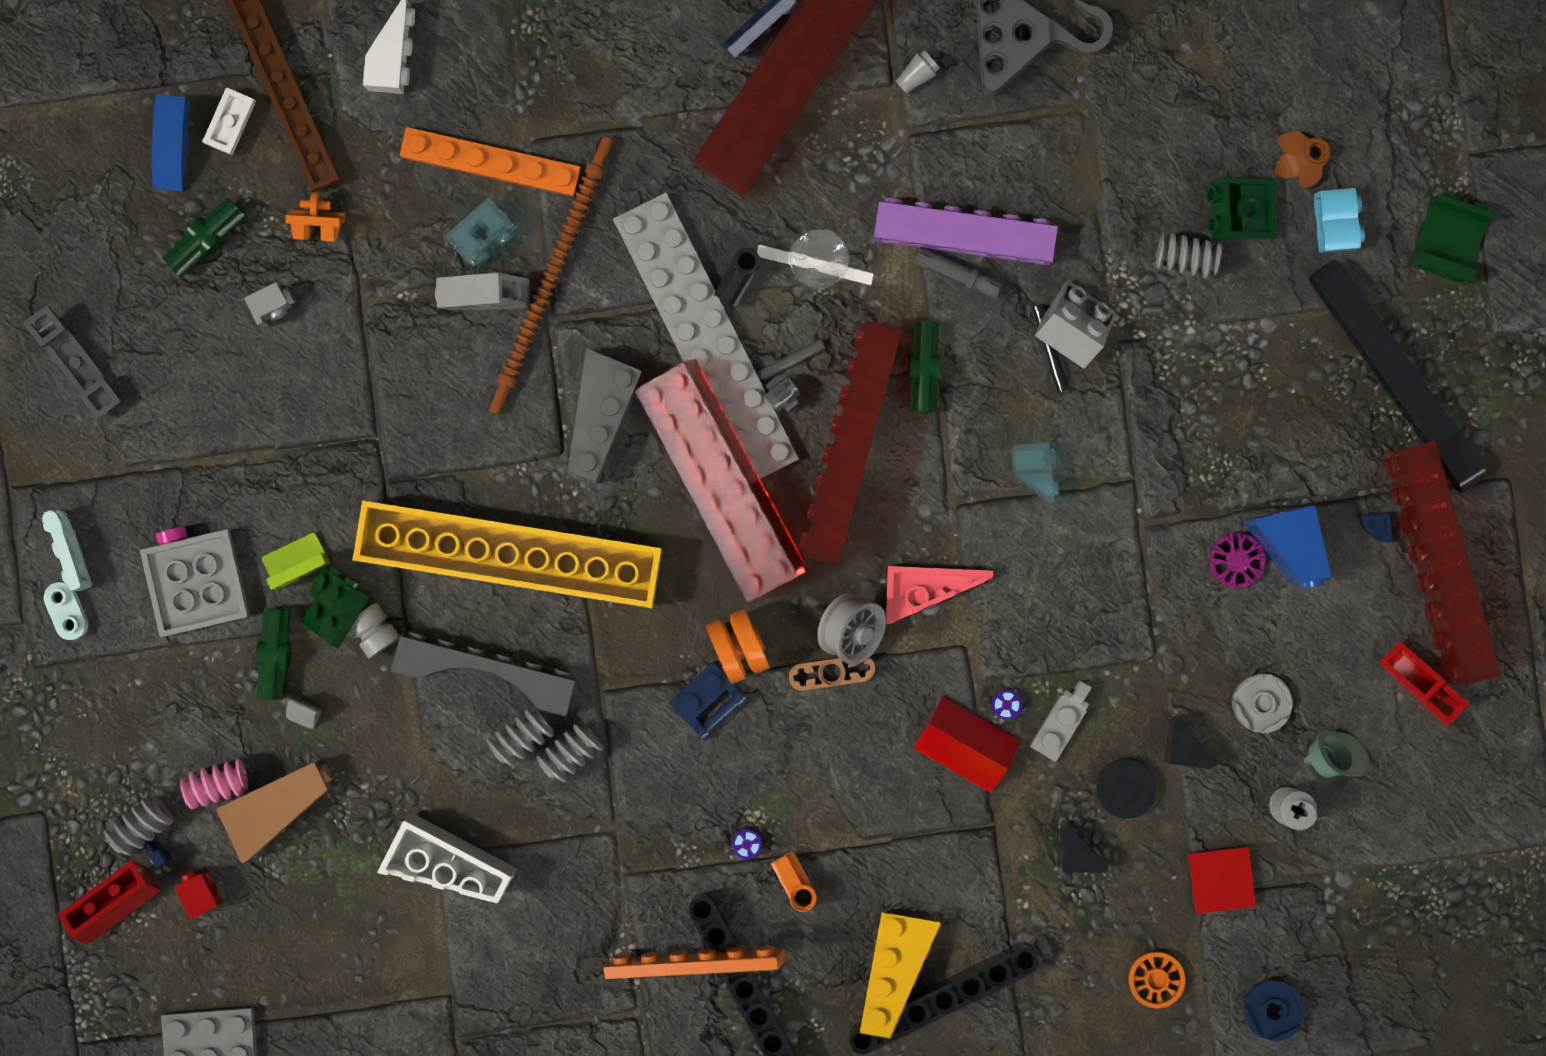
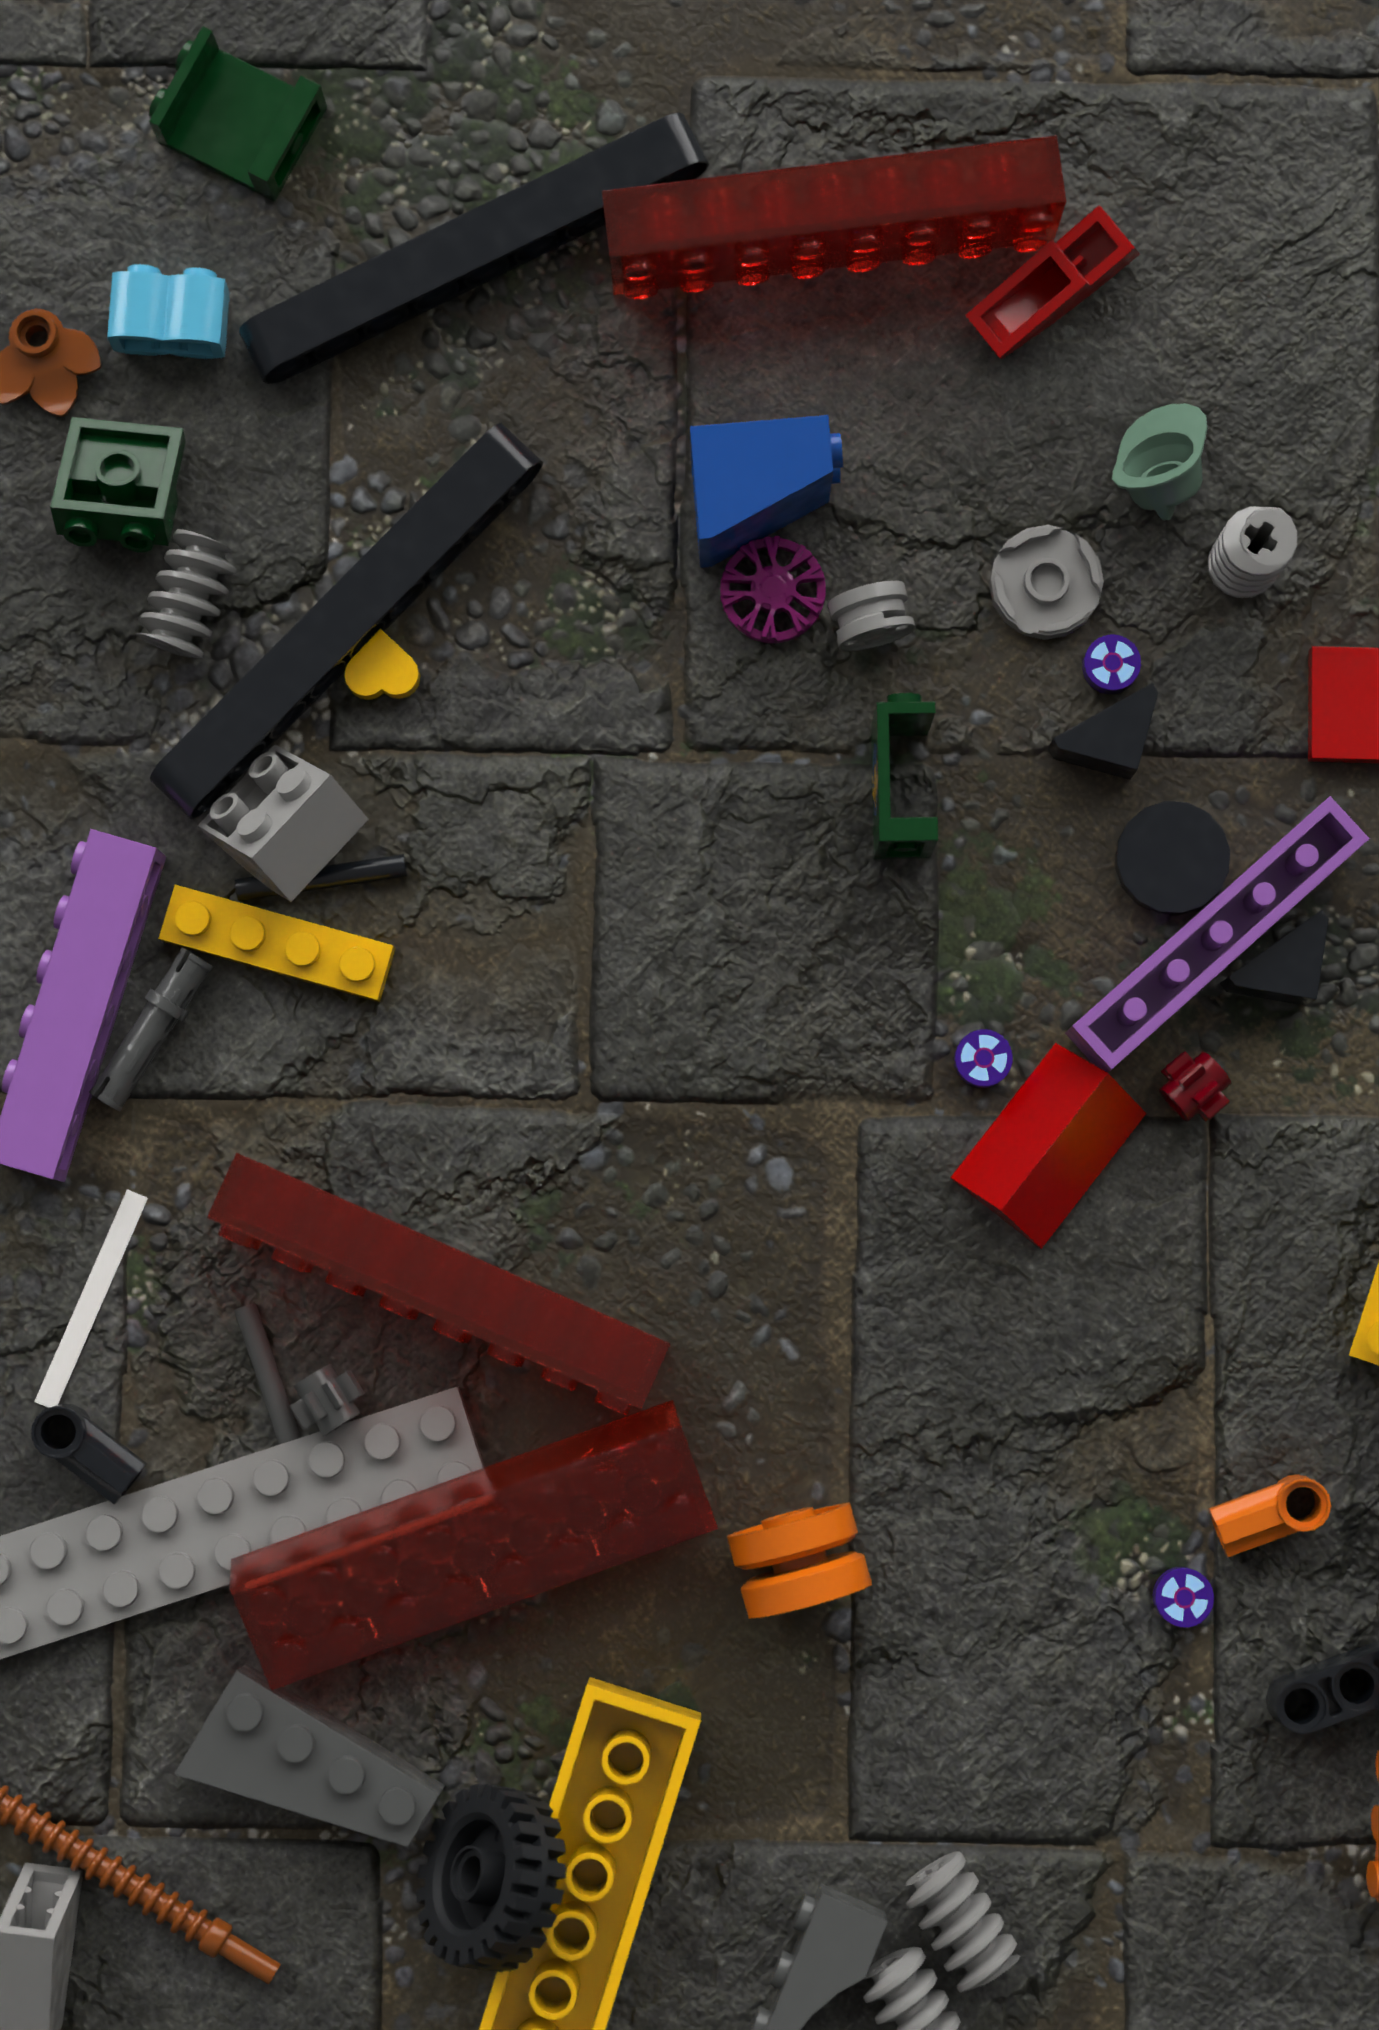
camera: 75 degrees left, 5 degrees down
(559, 514) = (491, 1878): none -> black wheel
(701, 693) = (881, 1642): dark blue plate -> none
(810, 683) = (862, 1427): medium nougat beam -> none
(819, 258) = (79, 1290): clear dish -> none
(850, 627) = (795, 1335): light grey wheel -> none
(918, 588) = (737, 1193): coral wing -> none
(924, 367) = (318, 1119): dark green piece -> none
(1008, 815) = (1195, 1086): none -> dark red gear
(1012, 330) = (277, 943): none -> yellow plate
(1033, 469) = (544, 941): clear light blue slope -> none
(1061, 722) = (1030, 959): light grey hinge -> none
(1088, 816) = (1217, 935): none -> medium lavender brick
(1115, 645) = (900, 836): none -> dark green panel
(1164, 362) = (382, 668): none -> yellow tile
(1187, 340) = (344, 620): none -> black beam
(1223, 743) = (1111, 664): none -> dark purple tile
(1230, 614) = (871, 615): none -> light grey wheel
(1378, 526) = (747, 324): dark blue tile -> none

